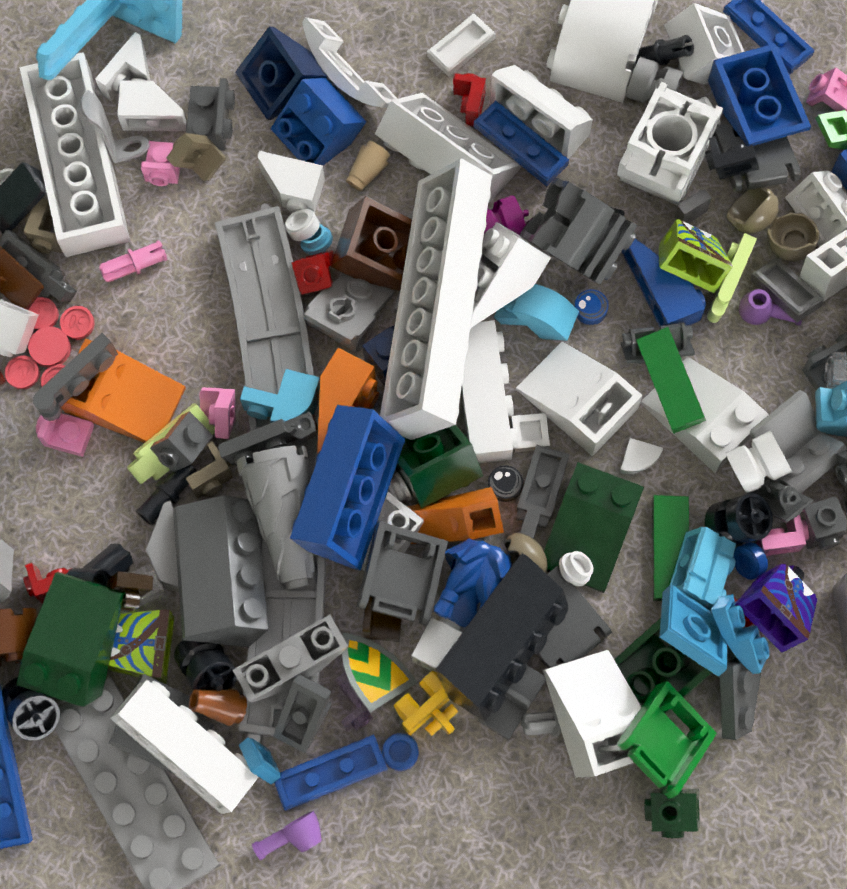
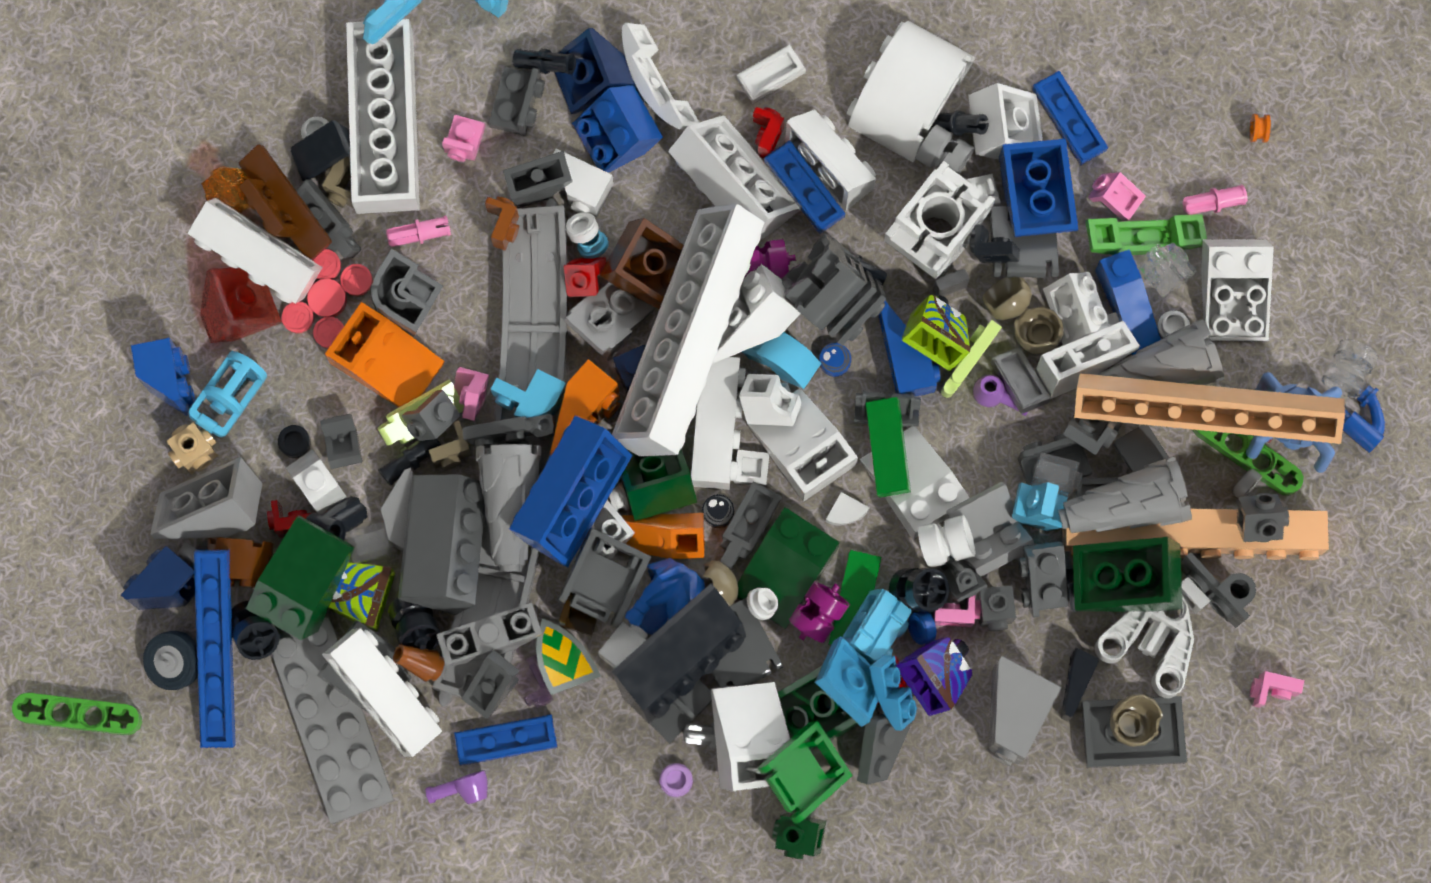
camera: 10 degrees right, 5 degrees up
(40, 500) = (294, 441): none -> black tile
(65, 433) = (326, 382): bright pink bracket -> none
(72, 536) = (316, 482): none -> white slope
(74, 377) = (345, 339): dark grey plate -> none
(90, 488) = (341, 441): none -> dark grey bracket
(95, 114) = (409, 89): light grey piece -> none
(126, 64) = (451, 32): white slope -> none
(129, 321) = (403, 292): none -> dark grey brick
(133, 586) = (362, 541): dark brown tile -> none
(148, 108) = (459, 81): white slope -> none
(196, 153) = (497, 137): dark tan bracket -> none
(223, 235) = (506, 227): none -> dark orange bracket
(231, 70) = (544, 60): none -> black pin
(247, 183) = (537, 179): none -> dark grey slope
(260, 760) = (446, 717): dark azure tile -> none
(367, 165) = (655, 180): tan cone -> none
(400, 752) = (571, 734): blue tile -> none
(415, 715) = (591, 706): yellow hips -> none
(524, 778) = (676, 780): none -> lavender tile
(534, 357) = (768, 401): none -> white brick
(638, 565) = (819, 611): none -> magenta wheel

